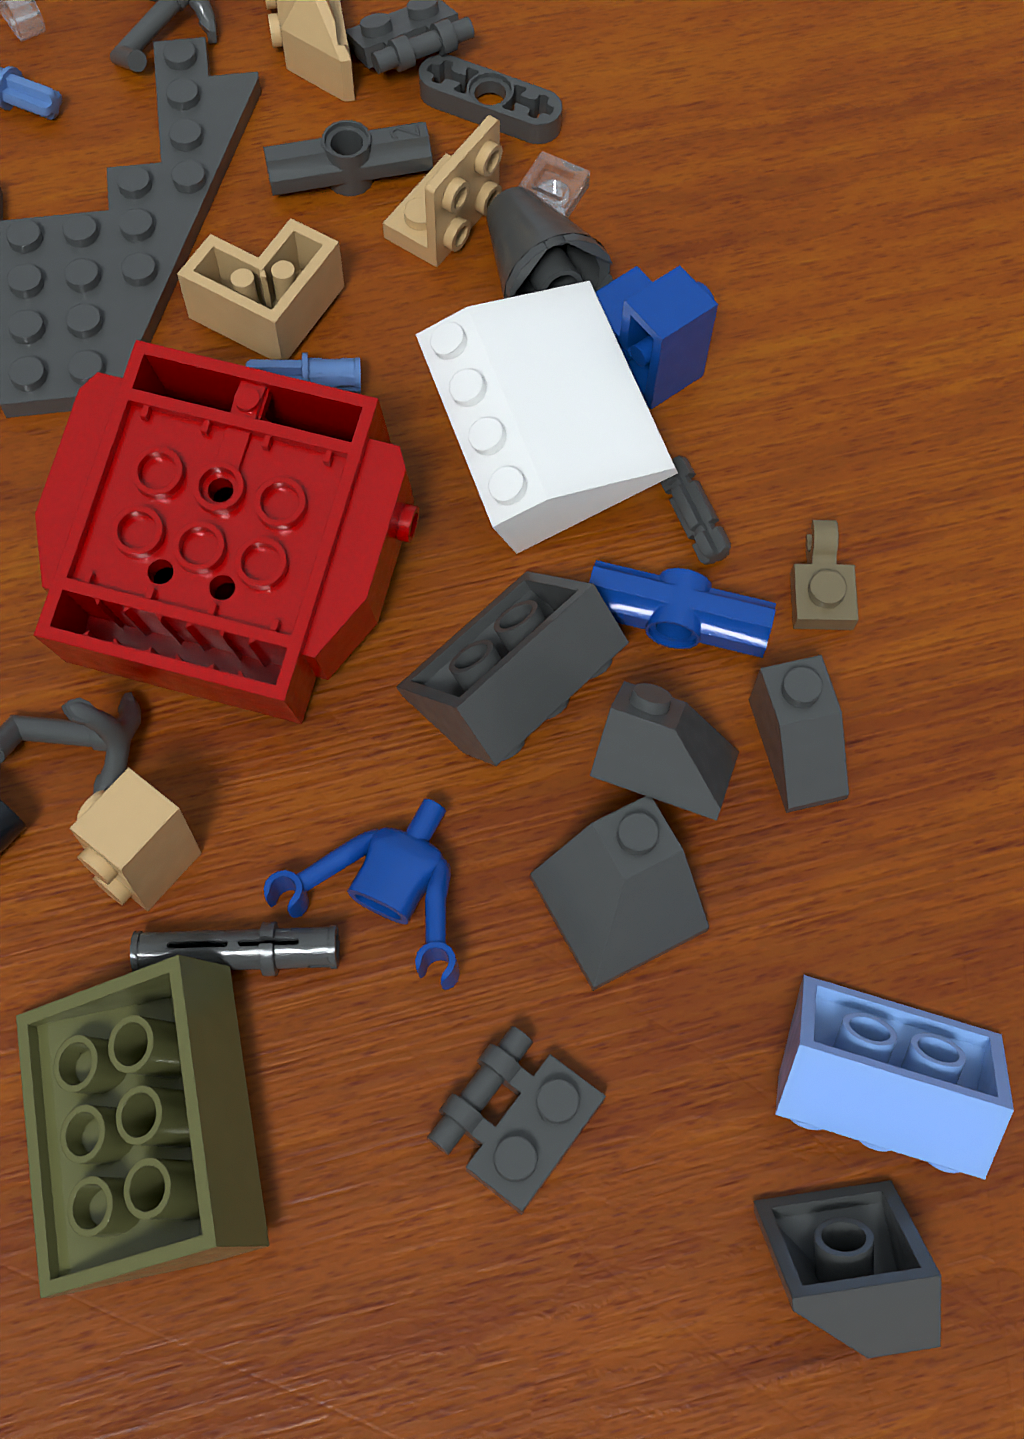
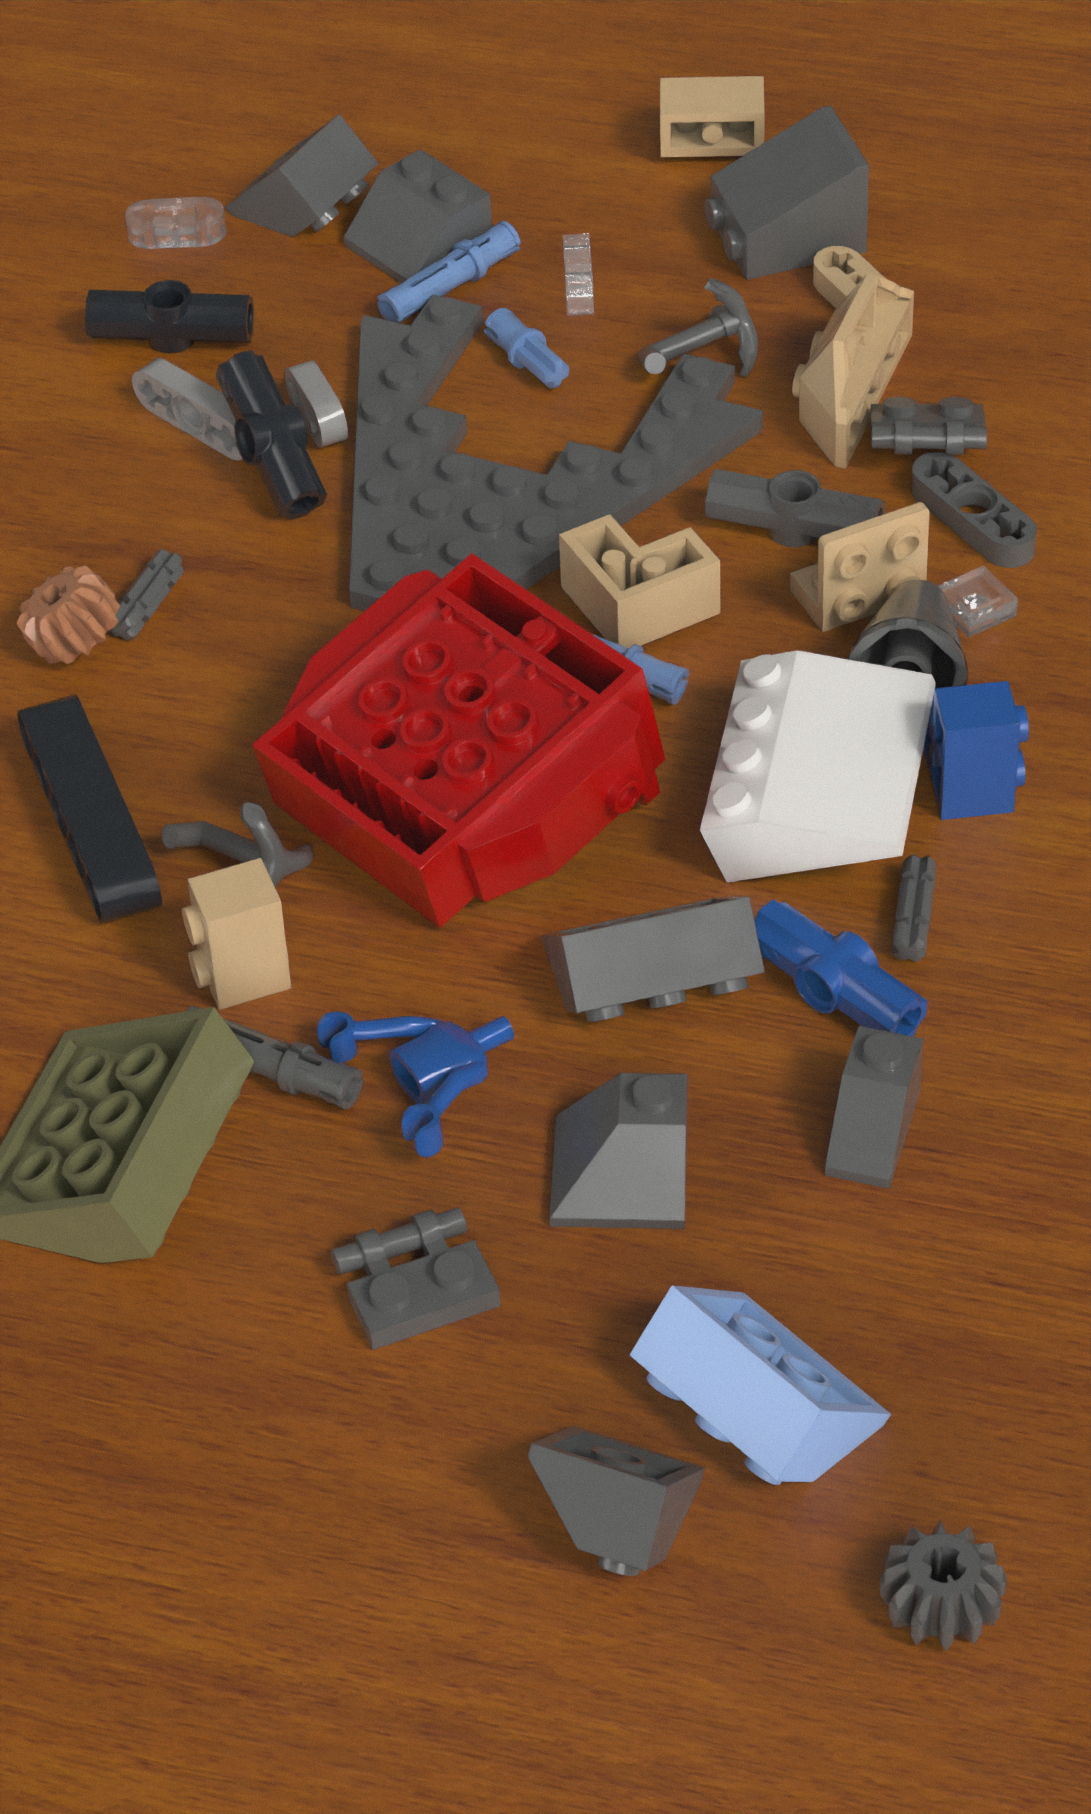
camera: 35 degrees right, 20 degrees down
(664, 751) = (727, 1047): dark grey slope -> none
(822, 589) = (993, 1019): dark tan plate -> none

